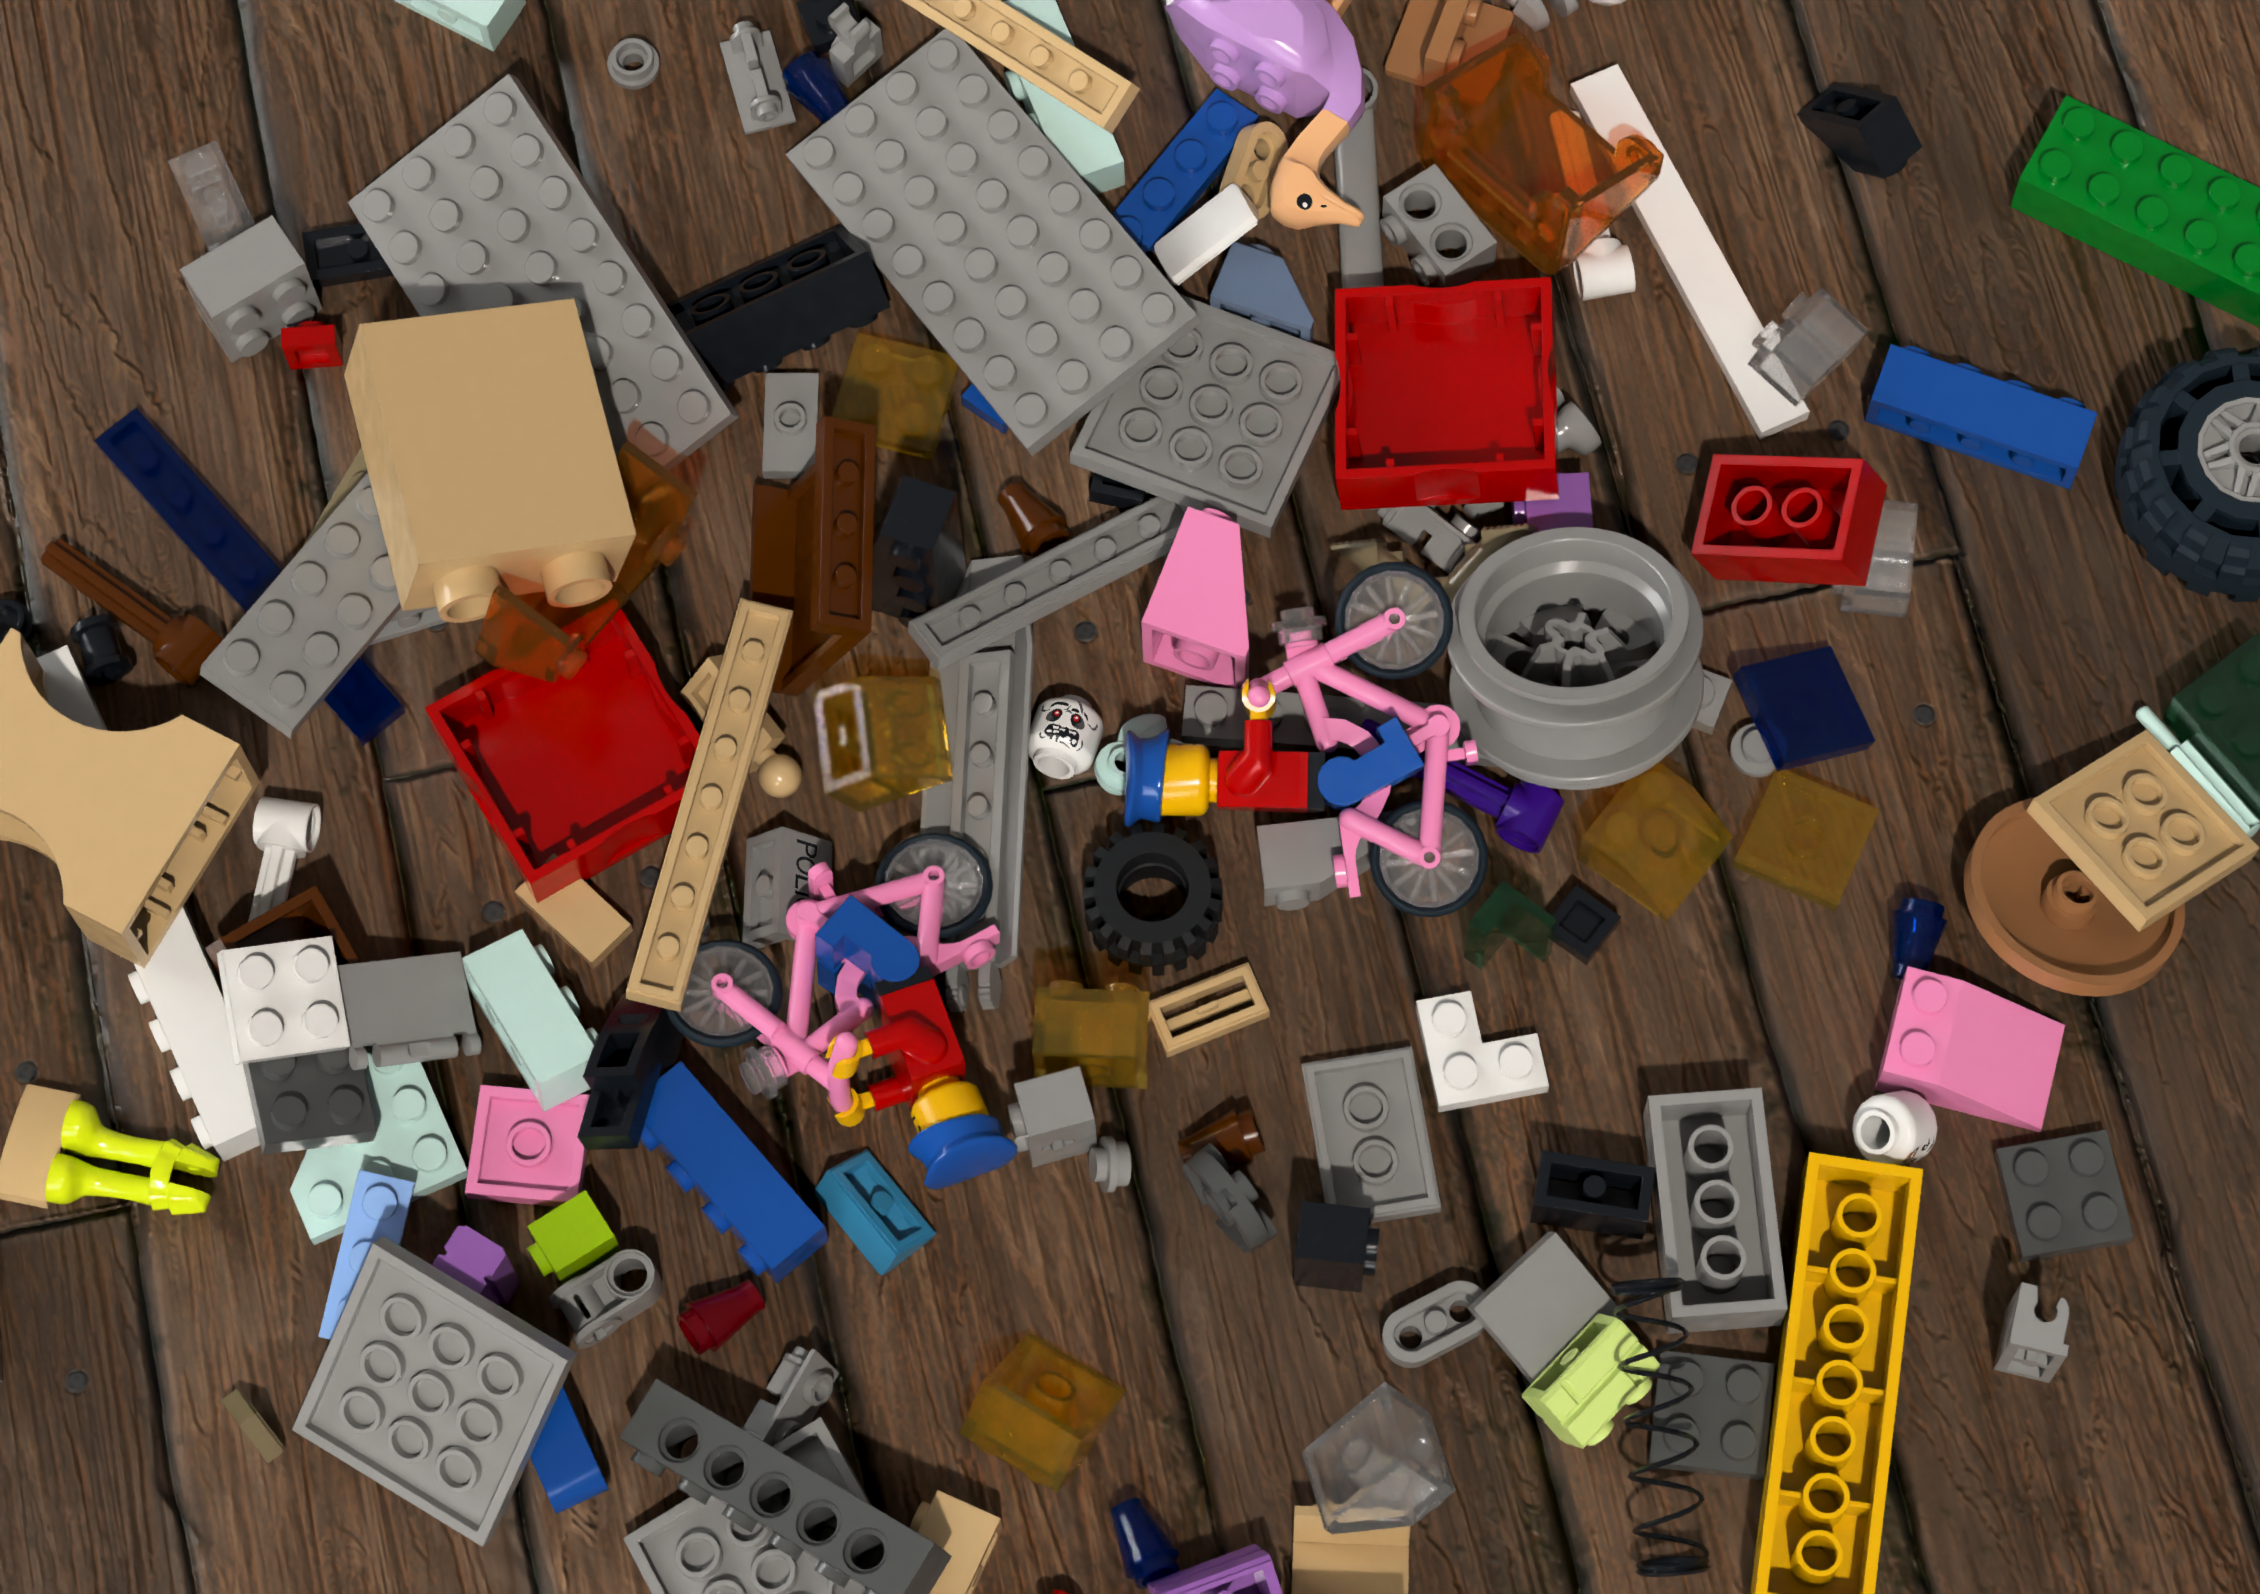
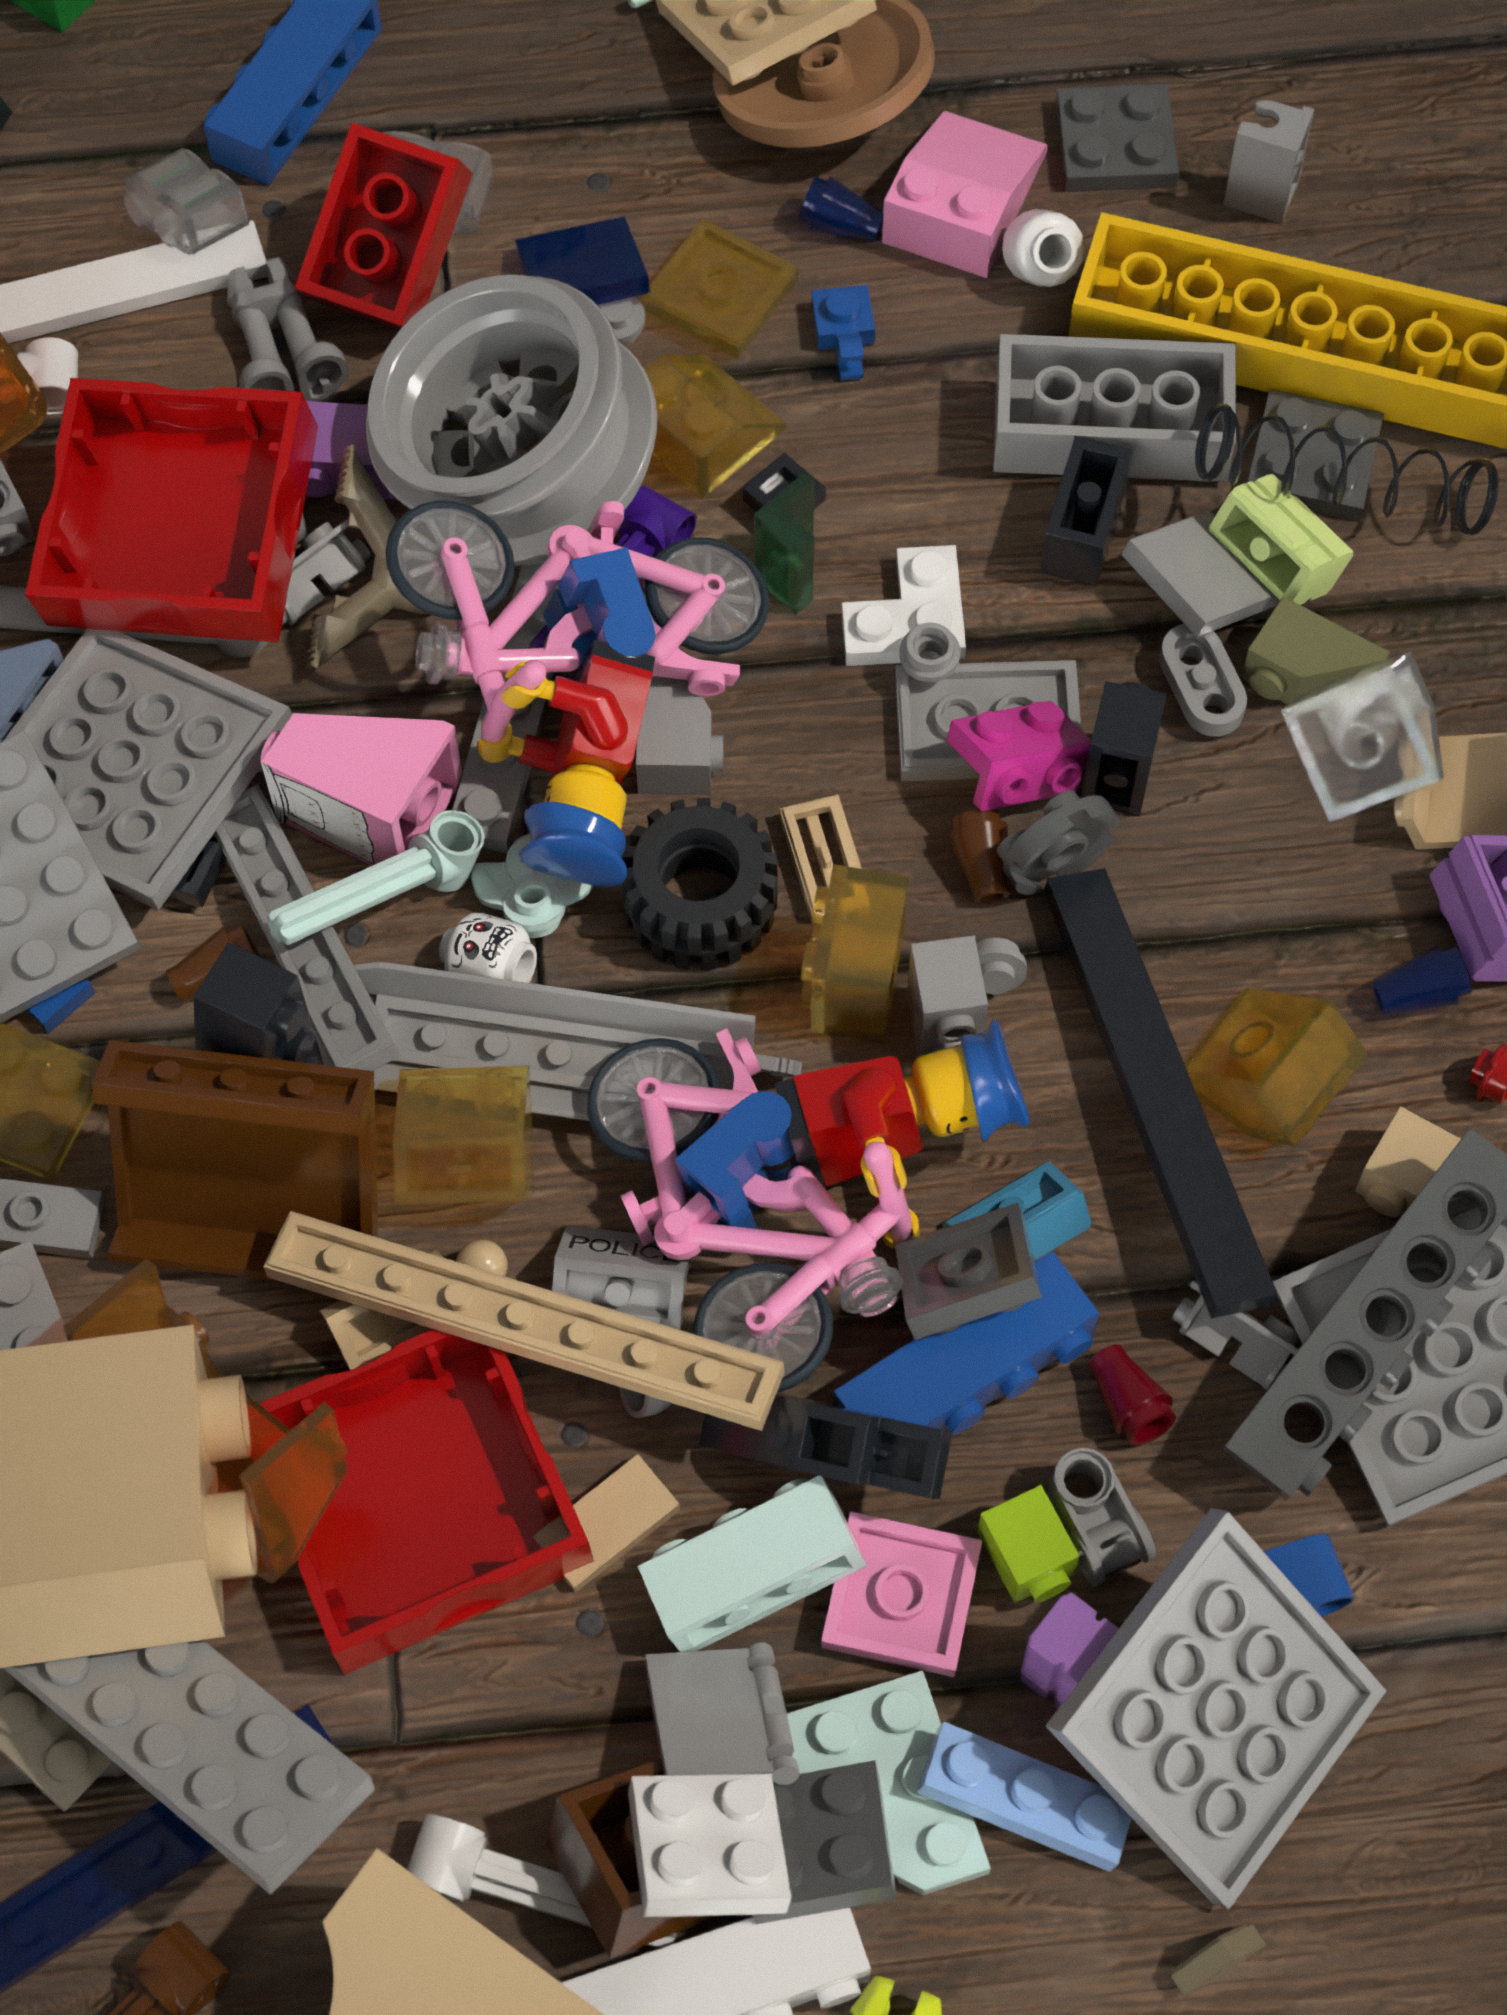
camera: 85 degrees left, 5 degrees down
(793, 1154) = (967, 1271): none -> dark grey plate
(1001, 1309) = (1160, 1095): none -> black tile
(1107, 630) = (436, 857): none -> light aqua axle
(1315, 1152) = (1021, 753): none -> dark pink bracket
(1418, 1054) = (934, 638): none -> light grey plate
(1468, 1414) = (1304, 652): none -> olive slope
(1648, 492) = (317, 365): none -> light grey piece
(1789, 956) = (846, 323): none -> blue plate

